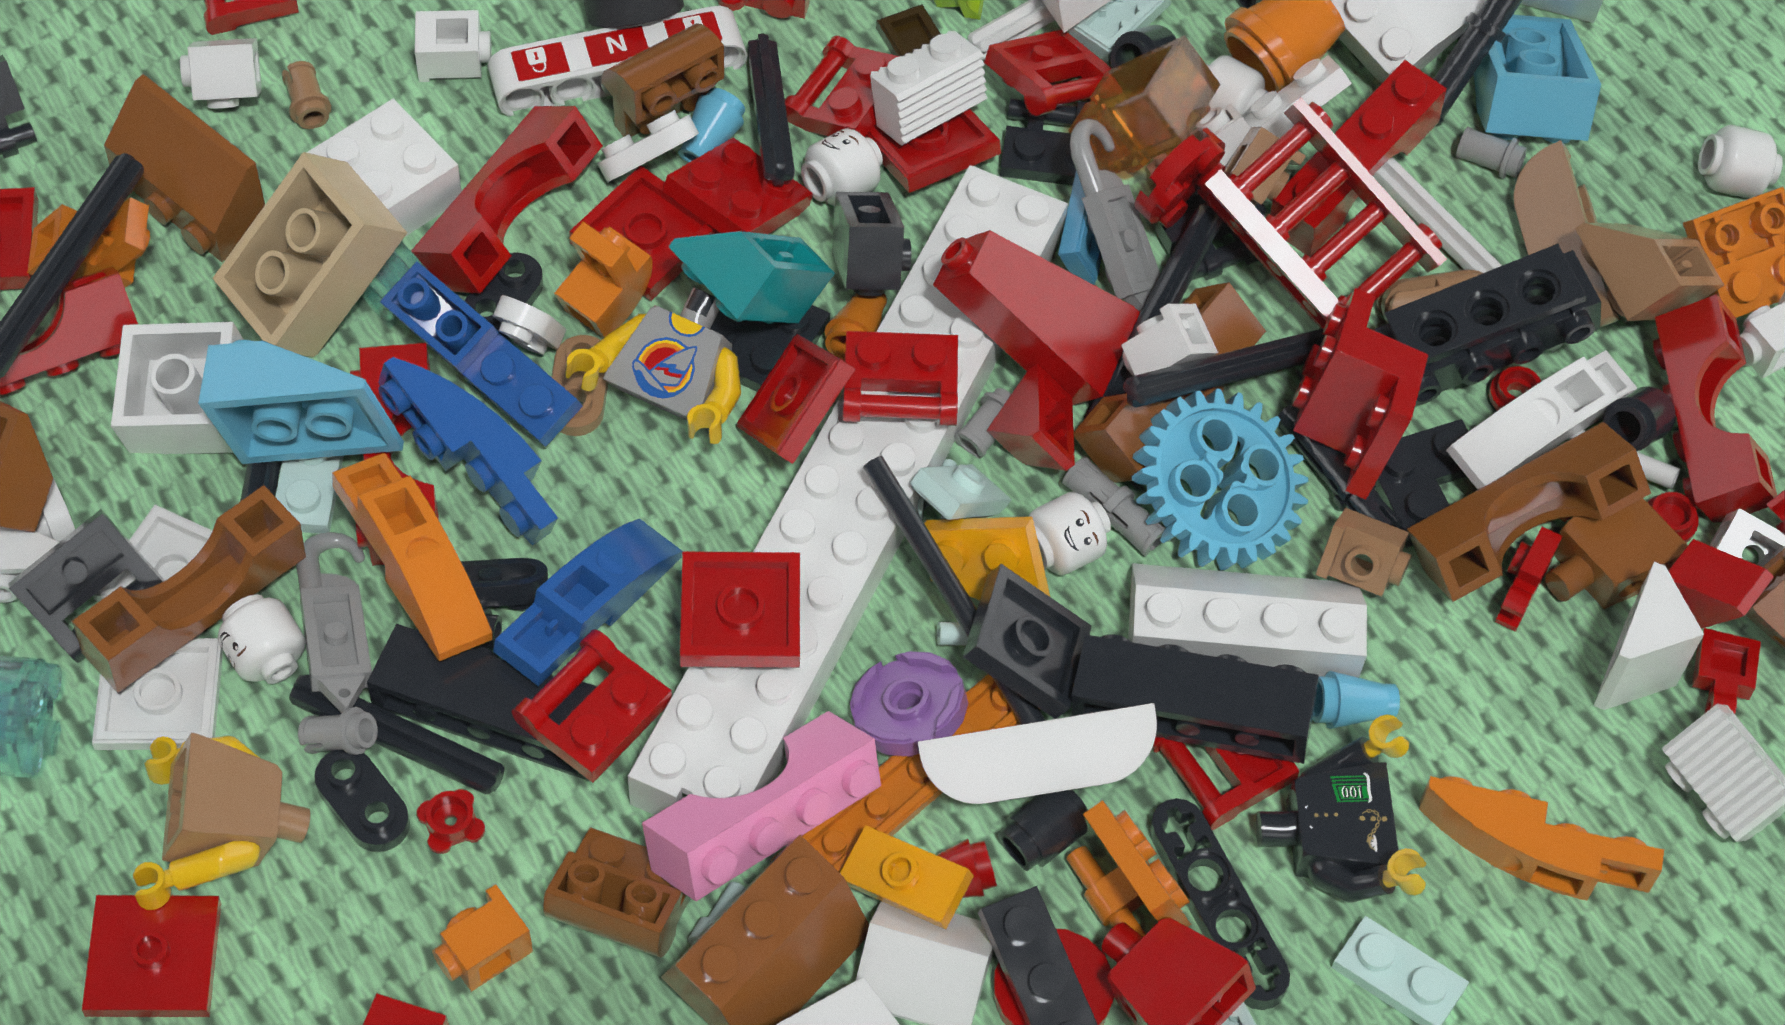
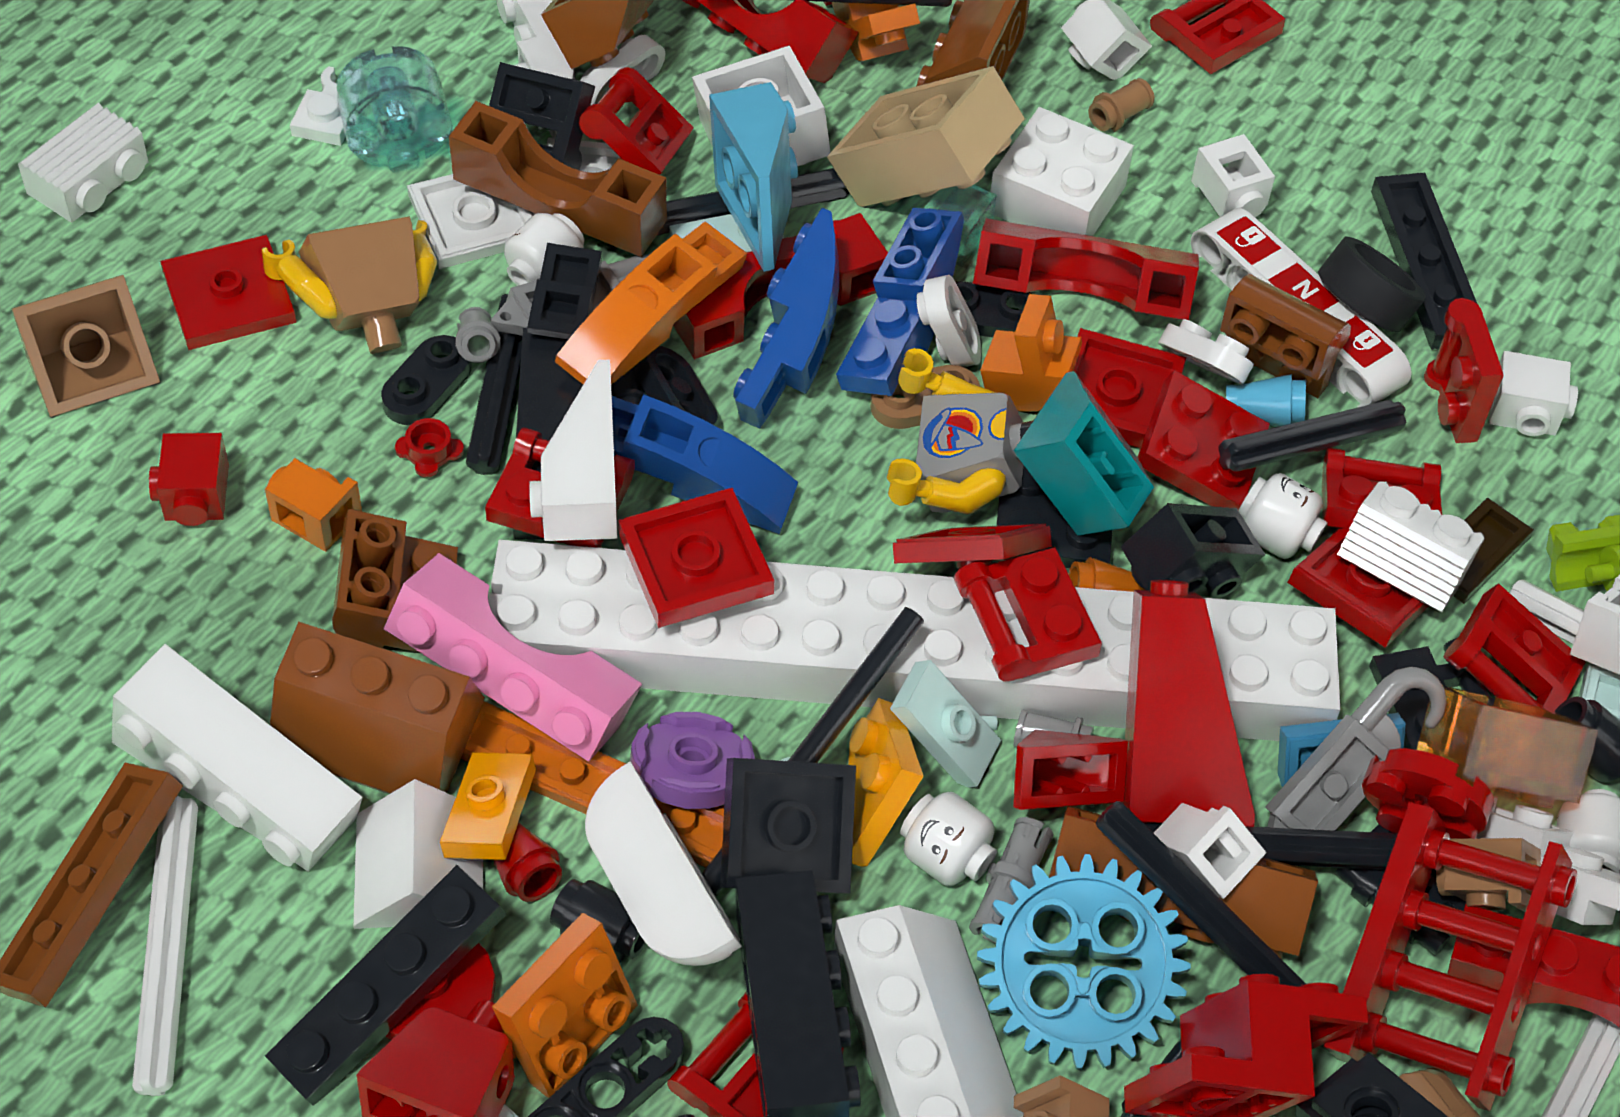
camera: 70 degrees right, 5 degrees down
(140, 498) = (652, 133): none -> red plate
(346, 631) = (564, 290): none -> black slope
(610, 663) = (579, 469): none -> white slope

